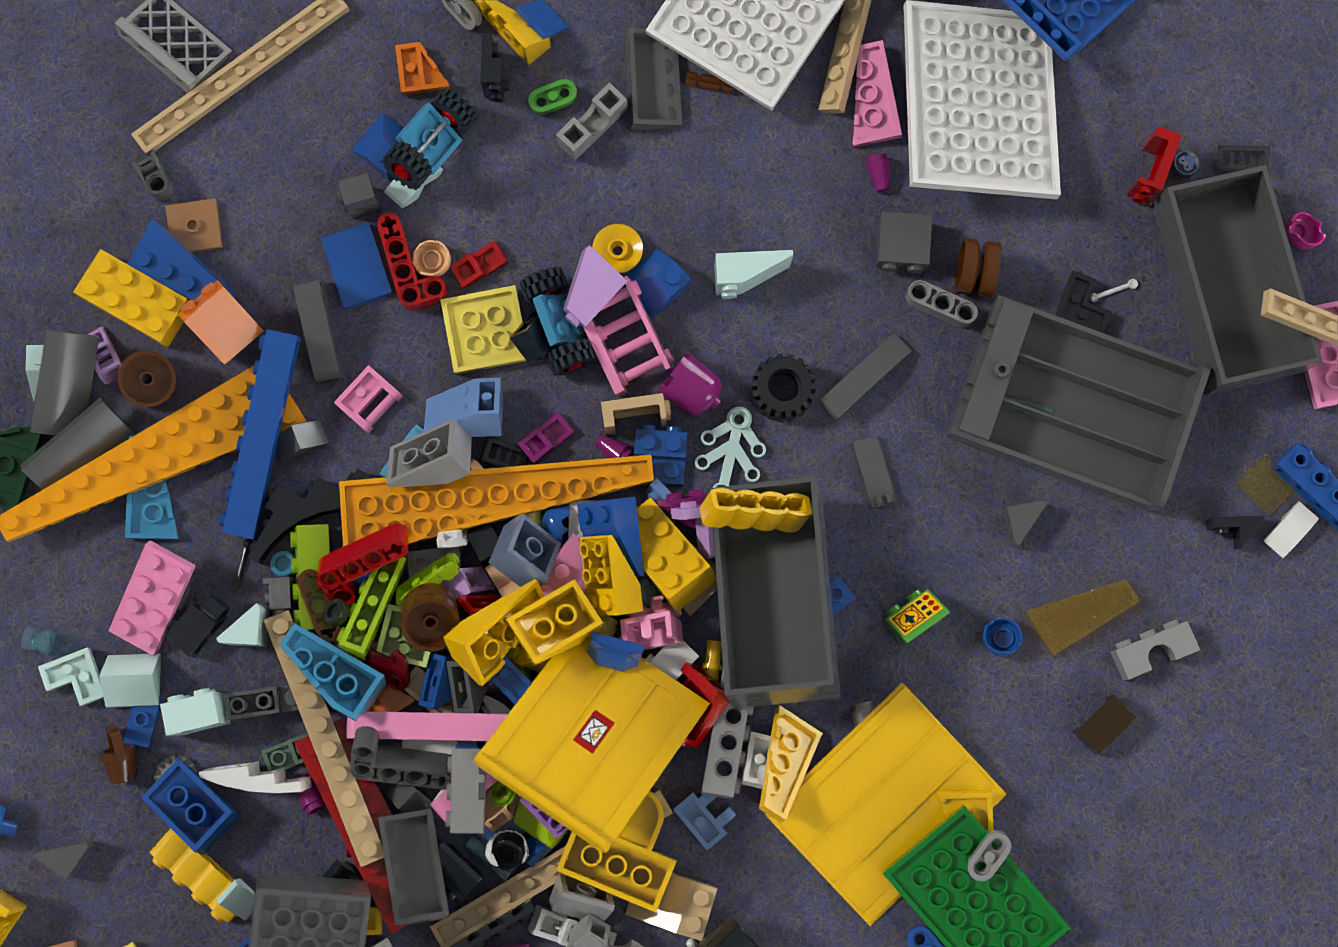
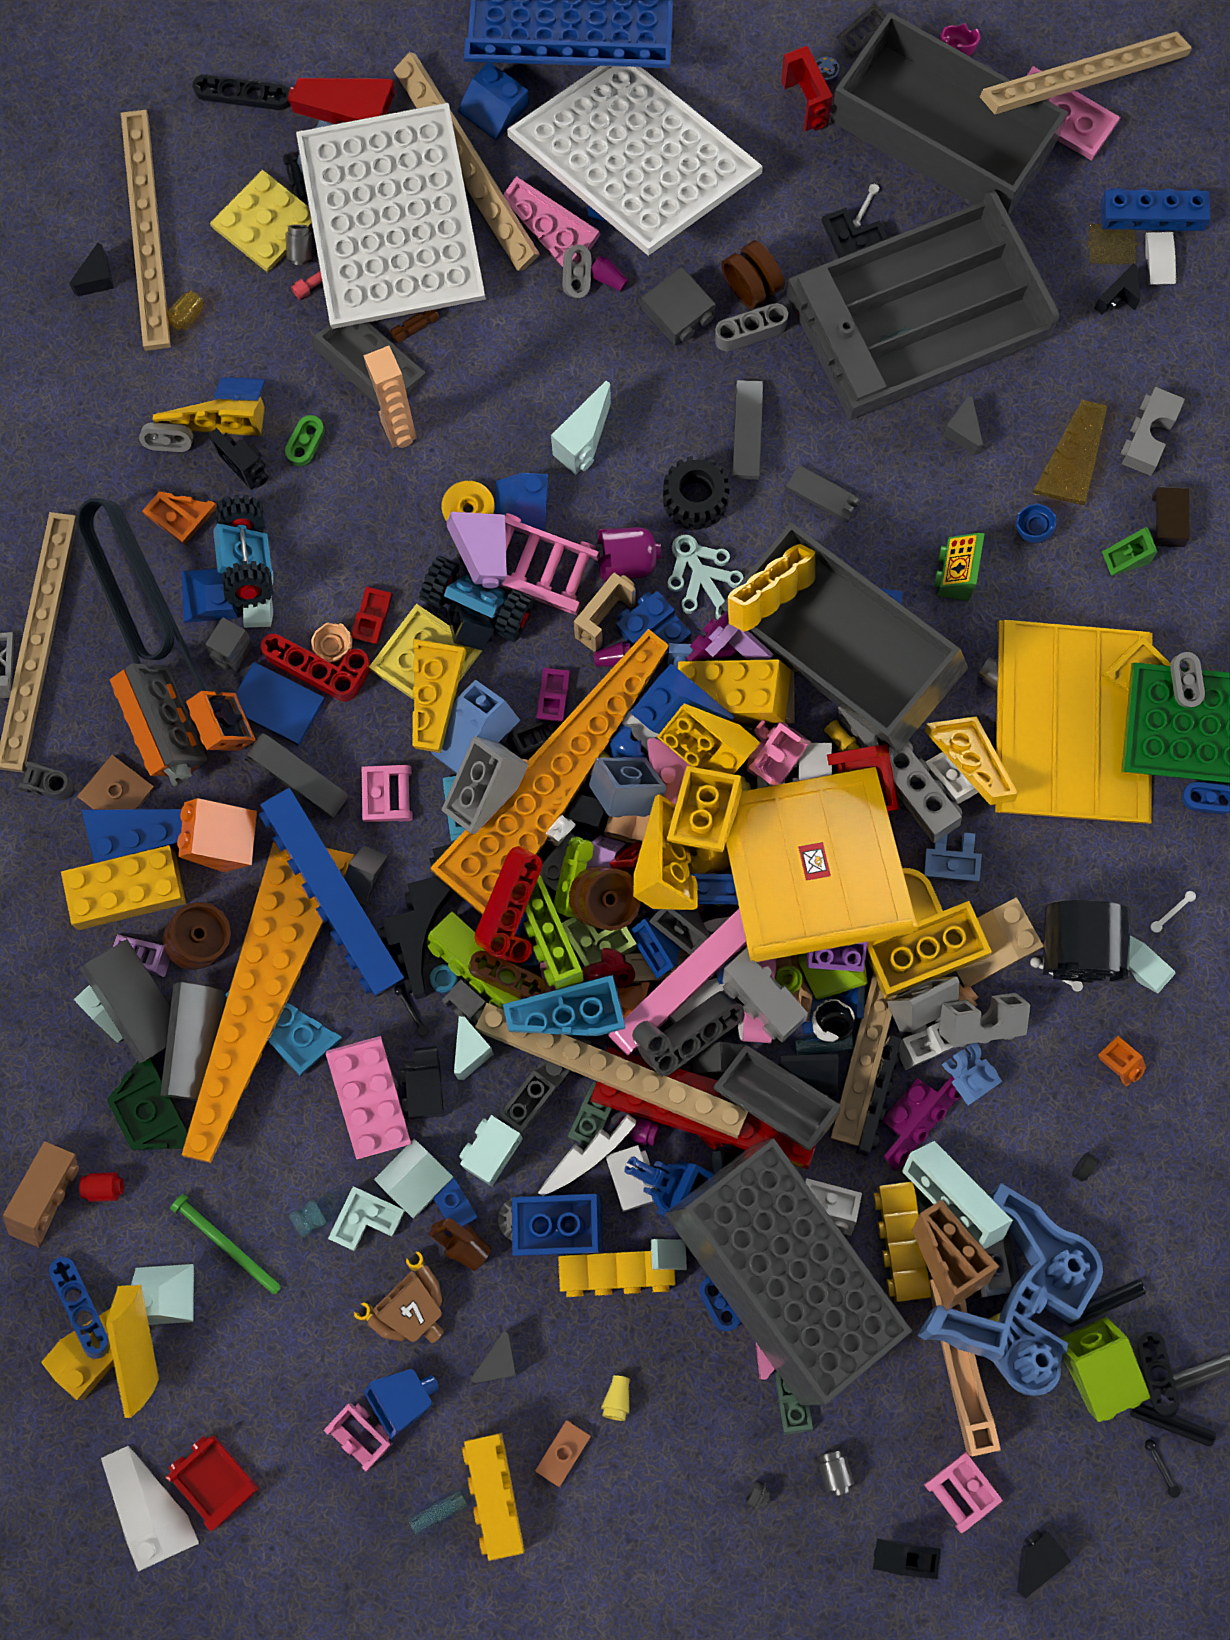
camera: 40 degrees left, 5 degrees down
(44, 765) = (408, 1308): none -> medium nougat torso
(261, 213) = (150, 694): none -> piece
(271, 822) = (628, 1187): none -> white brick
(289, 854) = (670, 1183): none -> blue brick
(336, 612) = (528, 964): pearl dark grey tile -> none
(470, 356) = (436, 681): none -> yellow wing
(602, 114) = (355, 441): light grey arch -> none
(614, 652) = (768, 794): blue slope -> none
(618, 920) = (967, 993): none -> light nougat plate
(621, 120) = (392, 397): none -> light nougat arch
(858, 148) = (576, 271): none -> light grey plate
(1048, 722) = (1130, 552): none -> bright green slope

